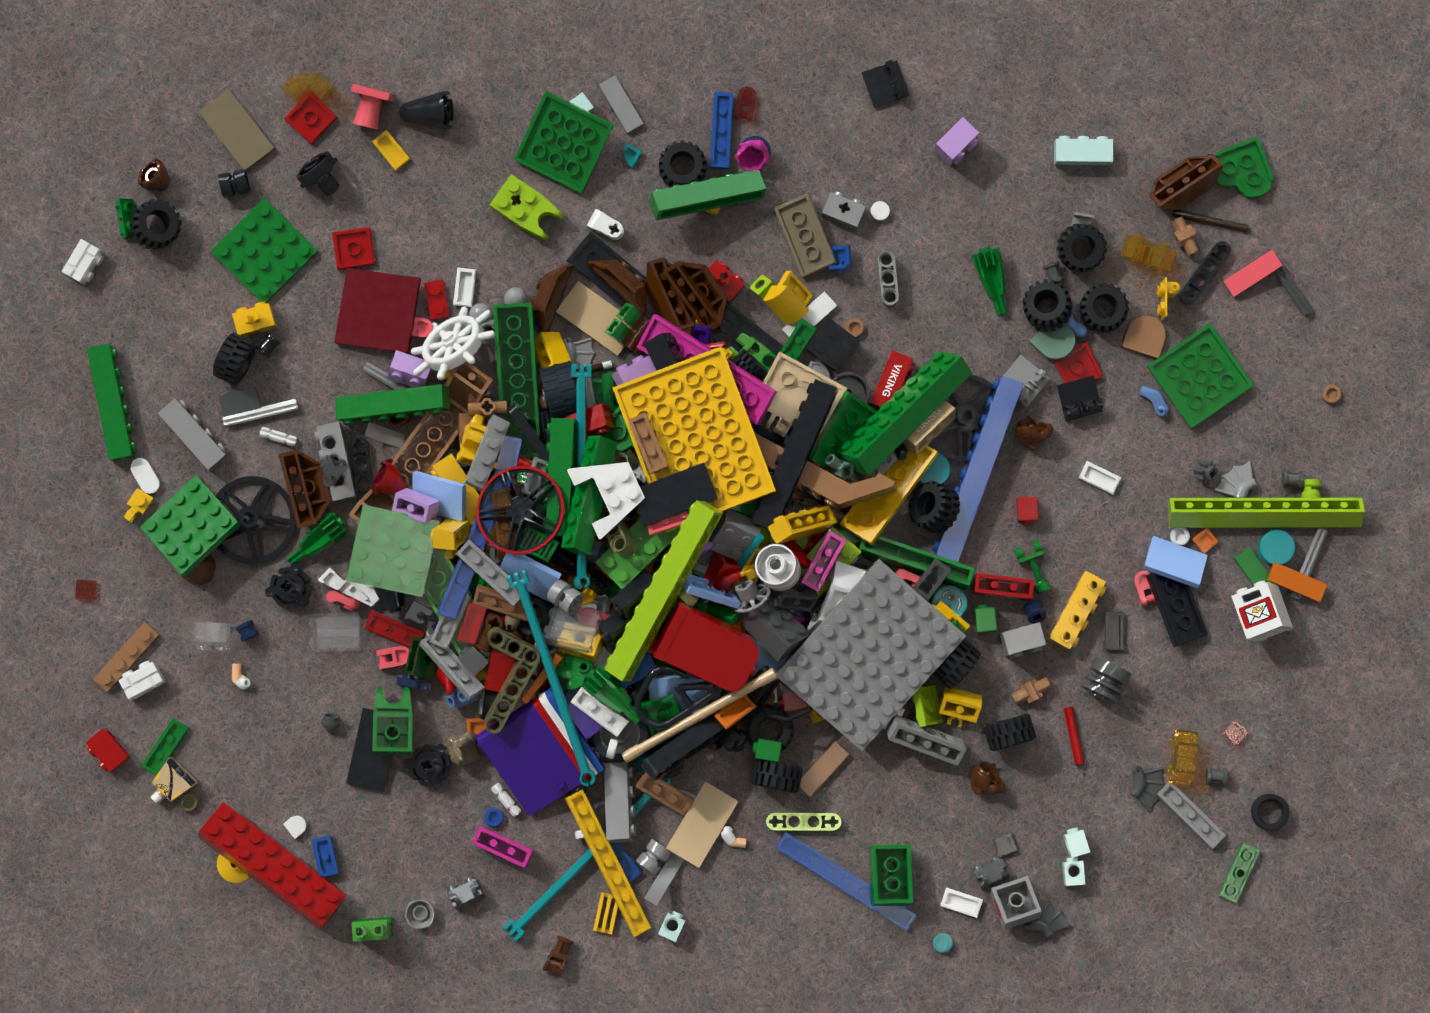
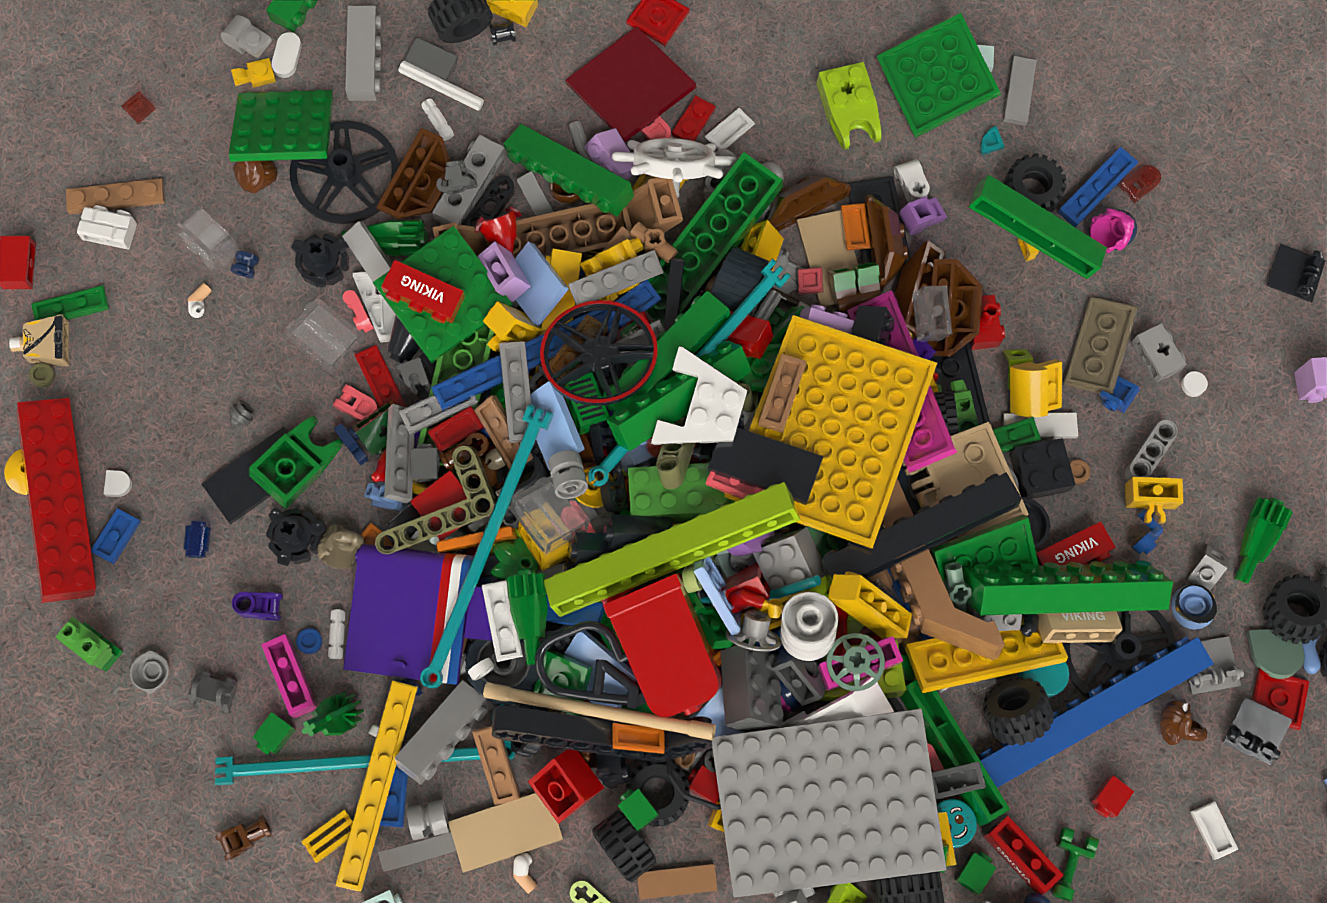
camera: 35 degrees right, 10 degrees down
(112, 488) = (245, 37): none -> light grey brick
(321, 560) = (367, 251): none -> light grey tile
(374, 817) = (196, 539): none -> clear blue brick
(384, 562) = (422, 292): none -> red brick
(447, 822) = (263, 605): none -> dark purple piece
(523, 886) = (273, 734): none -> green brick
(550, 846) = (334, 715): none -> green piece
(596, 286) = (855, 226): none -> orange tile
(597, 344) = (810, 281): none -> coral tile
(630, 243) = (922, 214): none -> medium lavender brick
(690, 309) = (932, 313): none -> clear brick
(715, 770) = (565, 784): none -> red brick
(820, 564) = (855, 661): none -> sand green wheel
(910, 305) = (1154, 494): none -> yellow brick
(929, 337) = (1146, 543): none -> blue plate
(977, 322) = (1209, 568): none -> light grey bracket
(986, 353) = (1194, 606): none -> light blue piece

